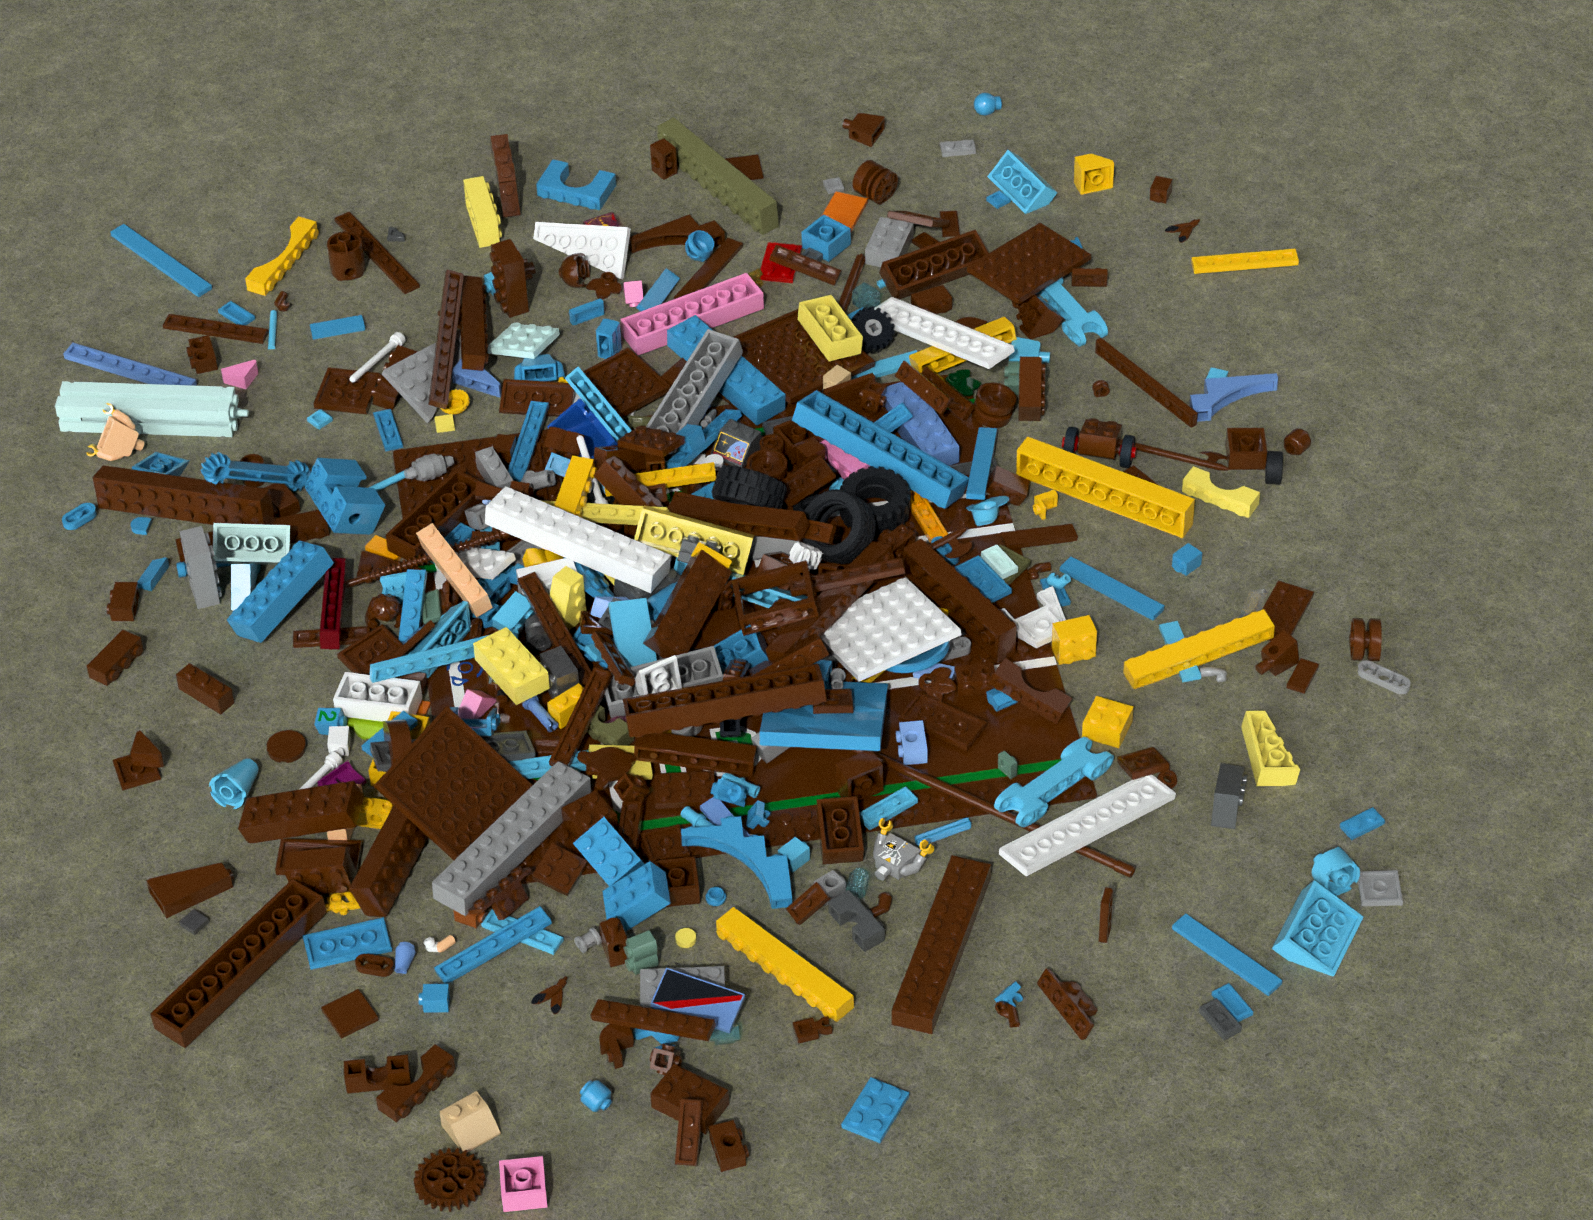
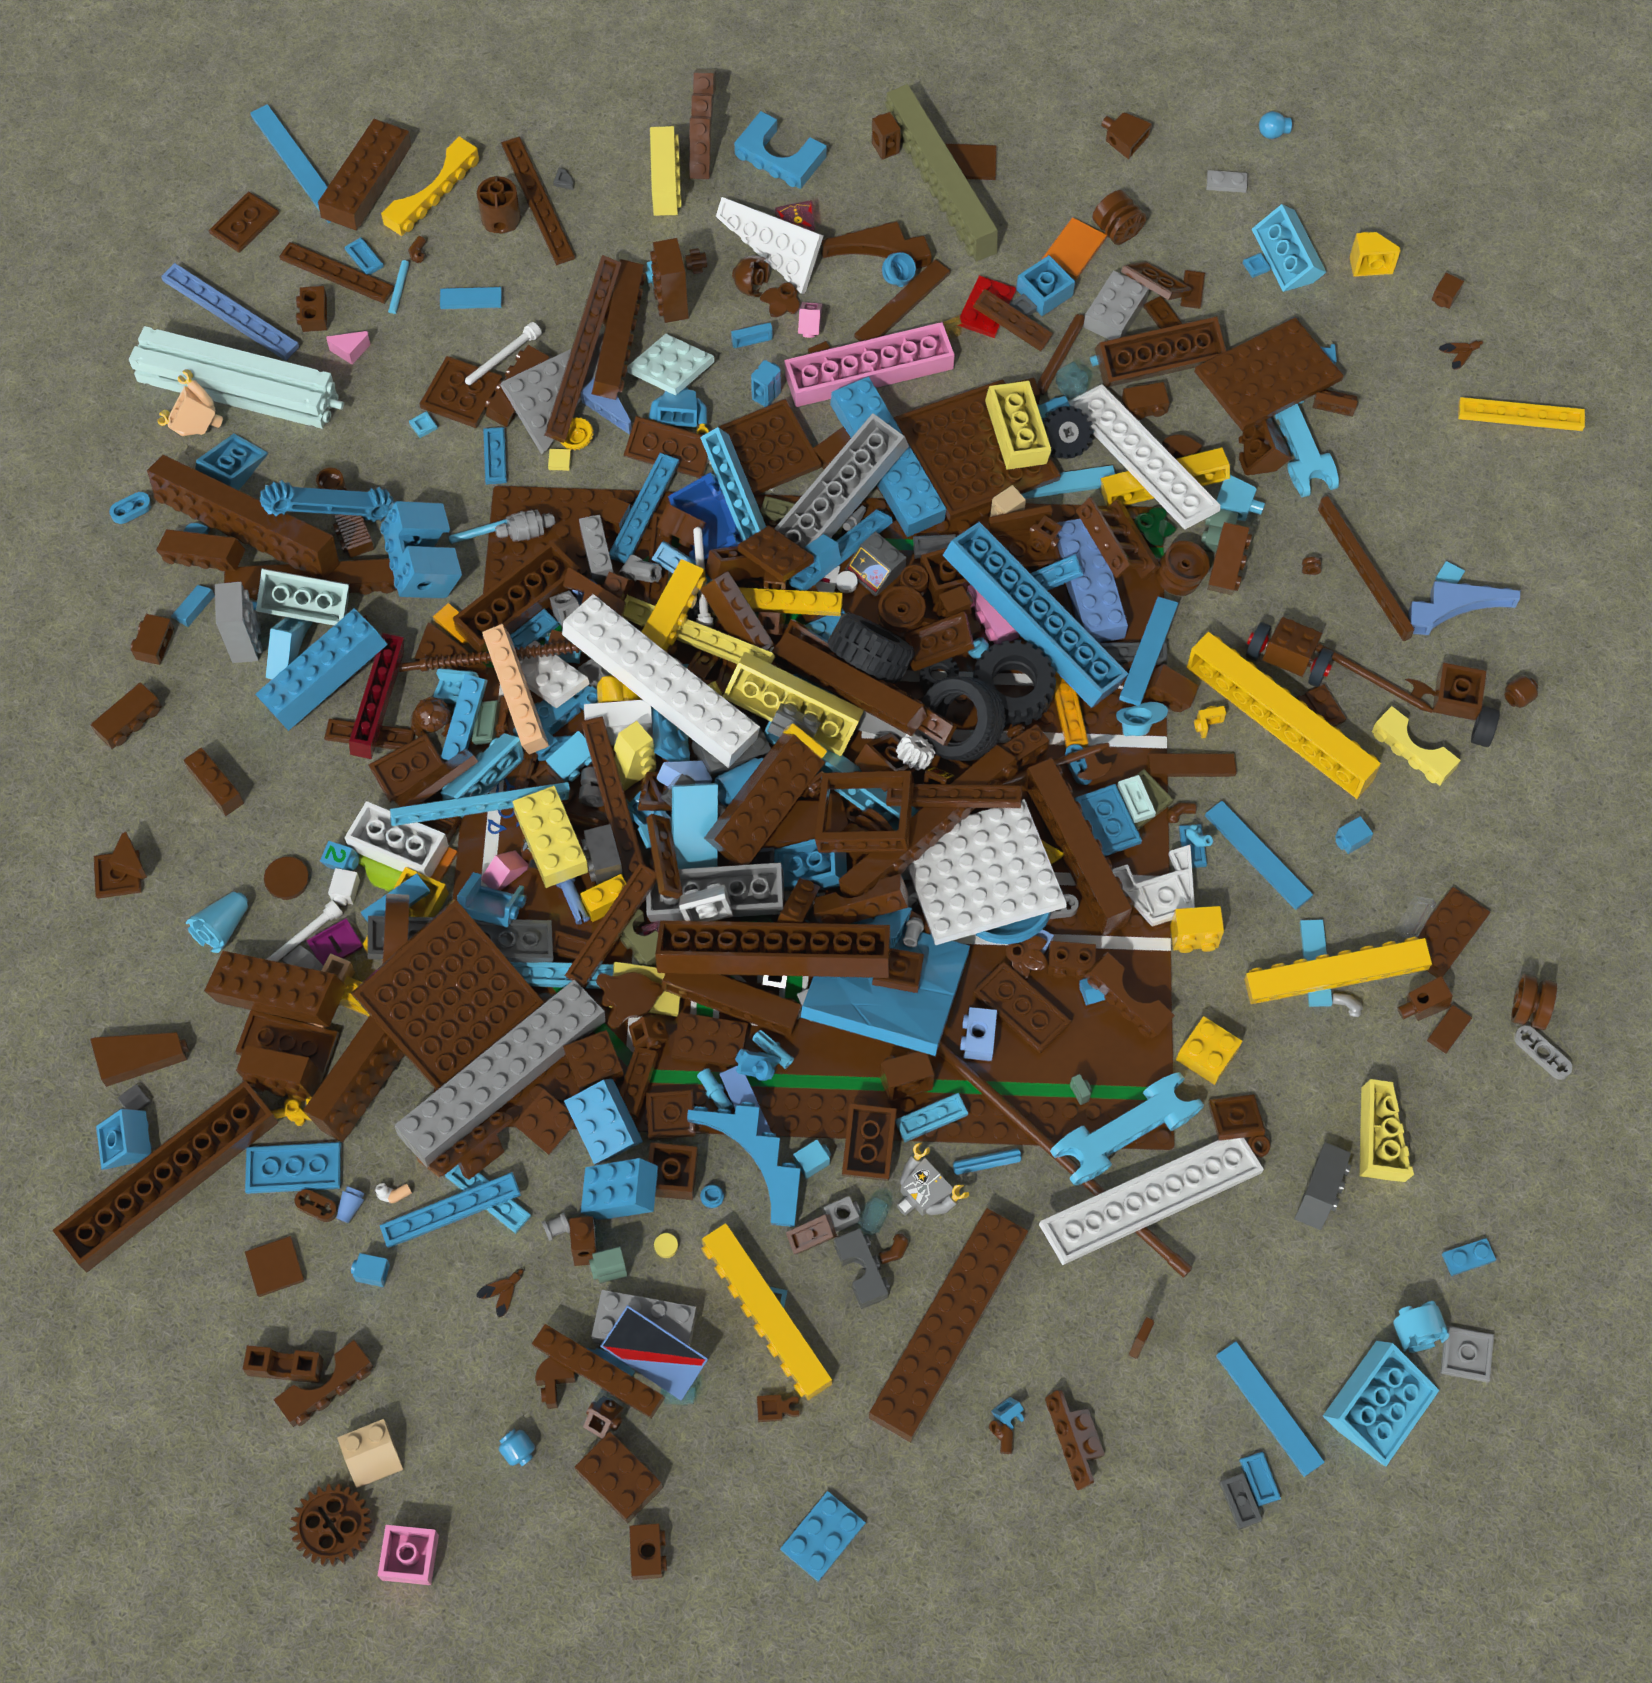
camera: 10 degrees right, 20 degrees up
(124, 307) = (244, 222): none -> reddish brown tile
(150, 530) = (200, 550): none -> reddish brown brick
(191, 946) = (123, 1138): none -> dark azure slope
(223, 255) = (364, 174): none -> reddish brown brick
(659, 290) = (838, 324): dark azure tile -> none
(688, 1132) = (605, 1528): reddish brown tile -> none
(757, 815) = (780, 1097): dark azure tile -> none
(833, 185) = (1072, 207): light grey tile -> none

